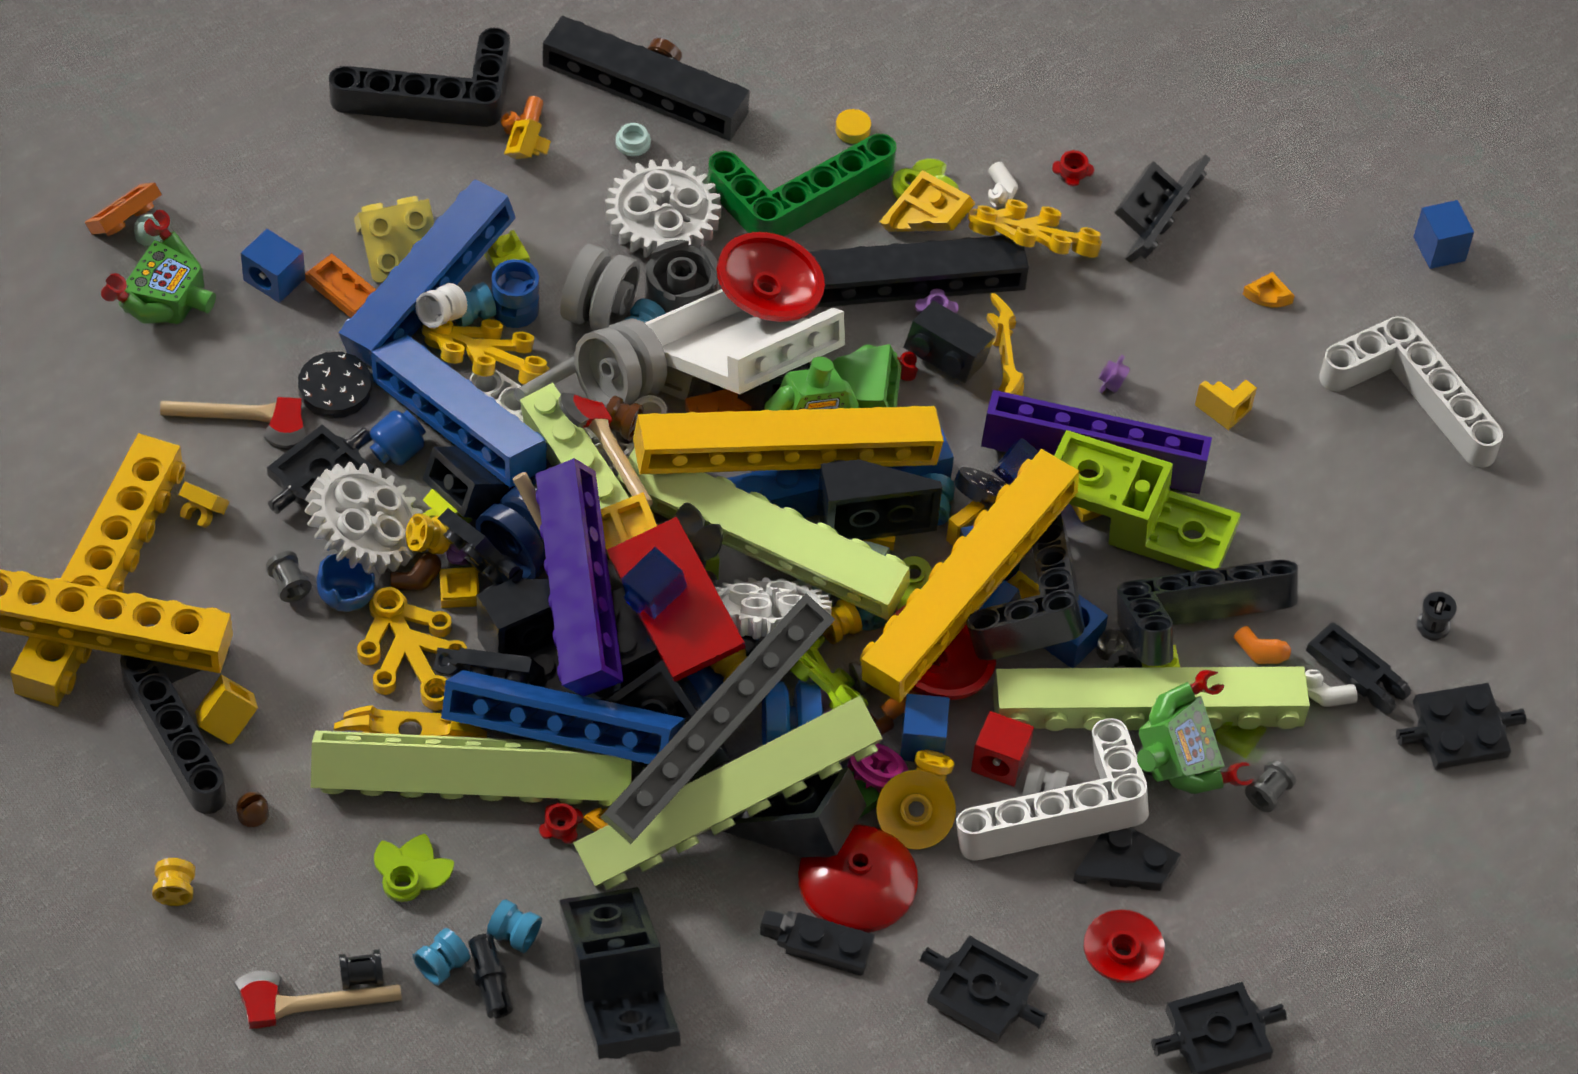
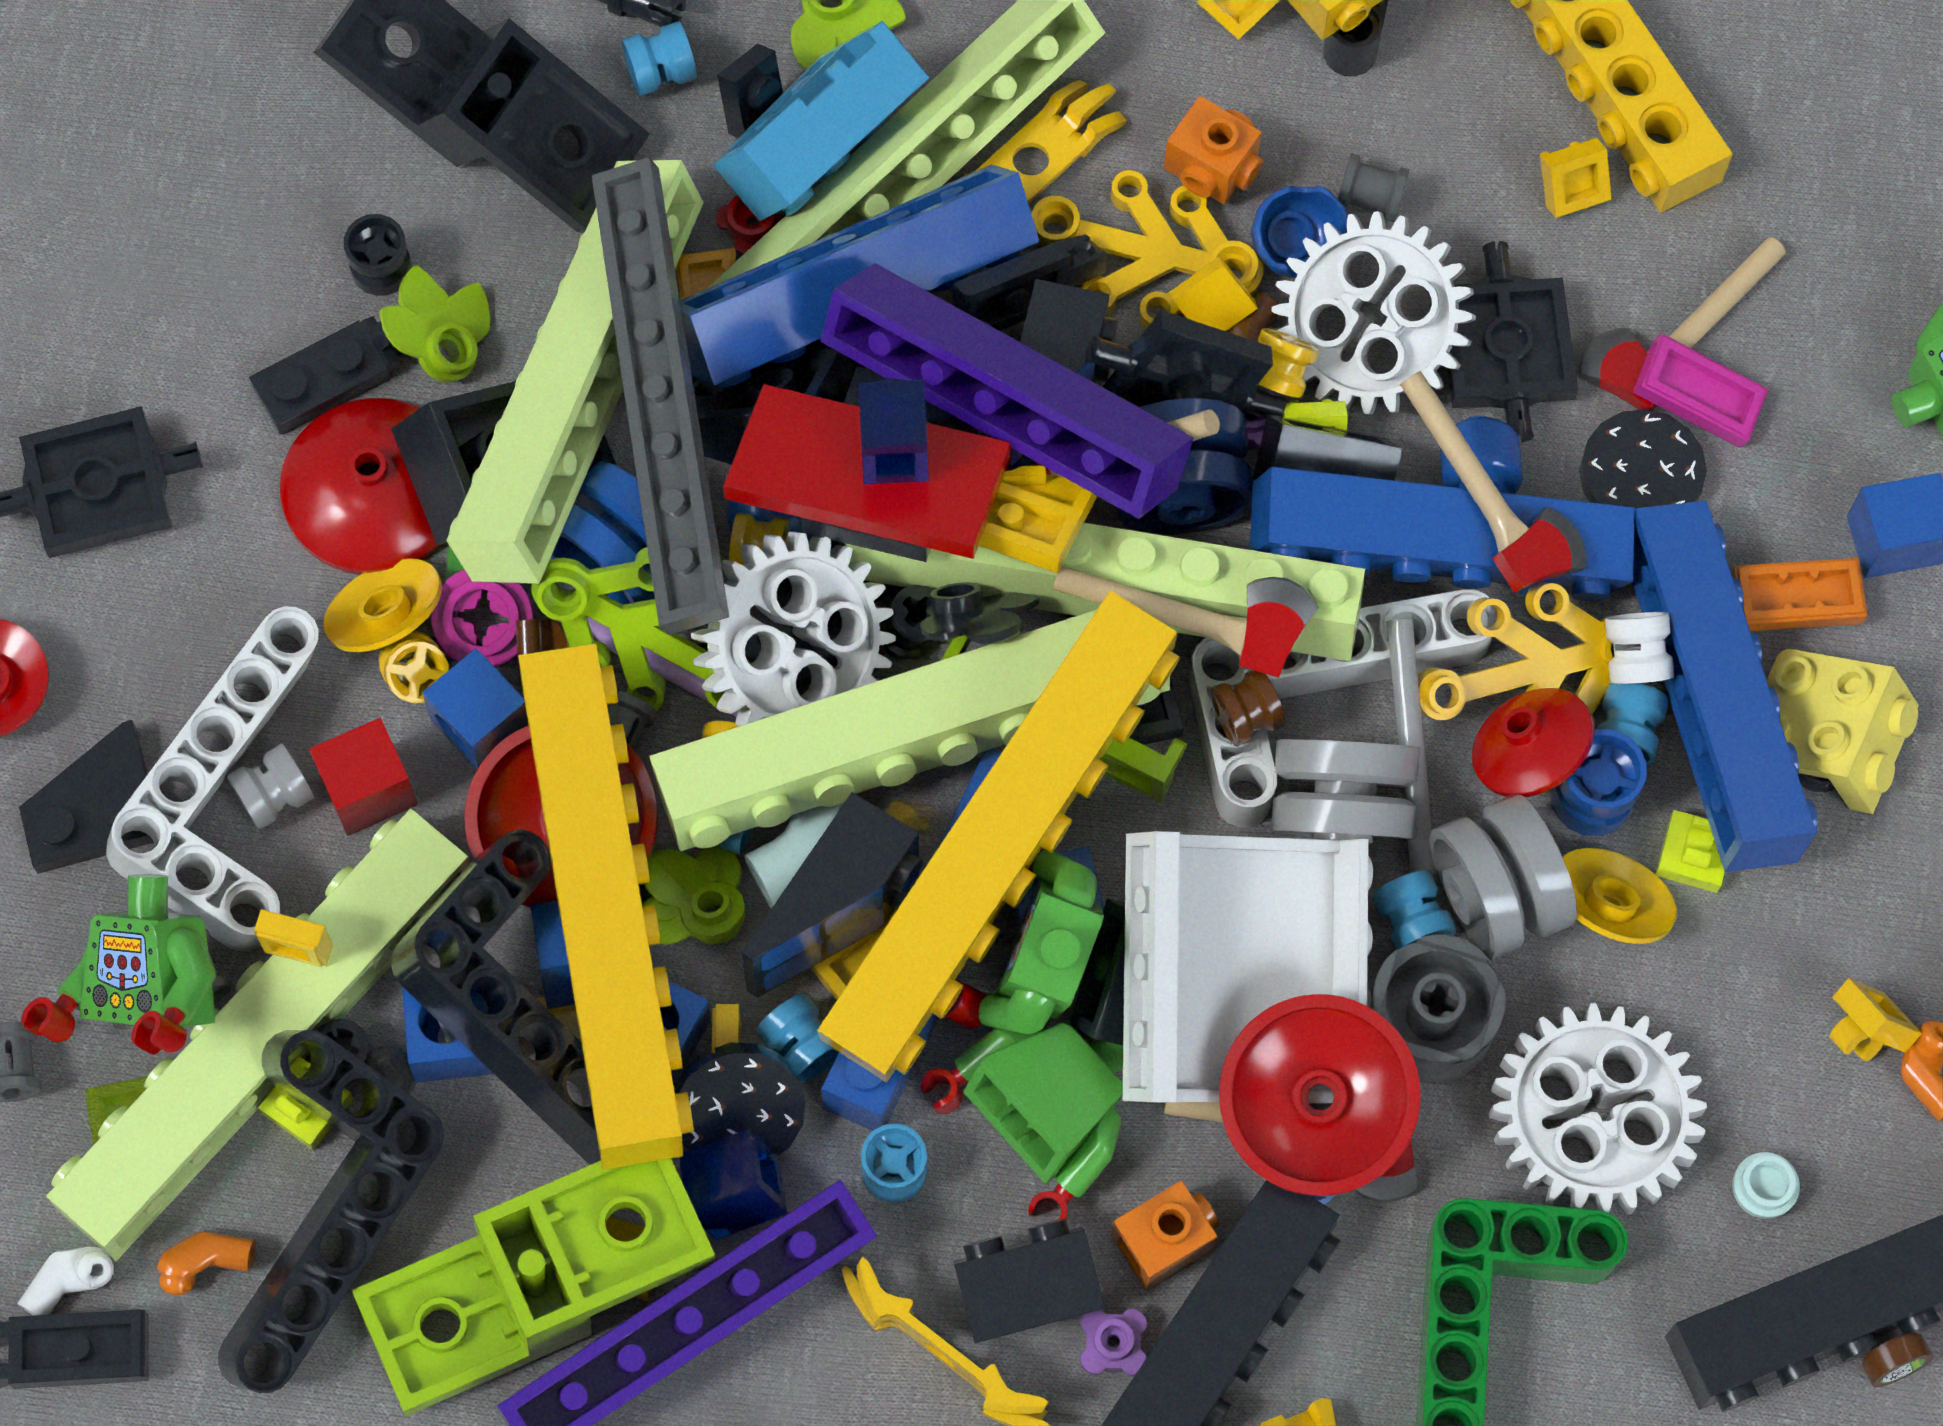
camera: 135 degrees right, 15 degrees up
(273, 382) = (1700, 390): none -> dark pink tile
(335, 646) = (1214, 151): none -> orange brick
(417, 592) = (1214, 297): none -> yellow tile
(439, 363) = (1525, 554): none -> piece
(490, 804) = (820, 121): none -> dark azure wedge
(498, 854) = (749, 88): none -> black bracket
(506, 321) = (1533, 742): none -> red dish
(557, 254) = (1619, 896): none -> yellow dish
(747, 953) = (370, 242): none -> black wheel
(751, 908) = (434, 319): none -> lime plate
(875, 315) = (1166, 1234): none -> orange brick
(954, 422) = (889, 1152): none -> dark azure wheel
(1108, 689) = (293, 938): none -> yellow tile

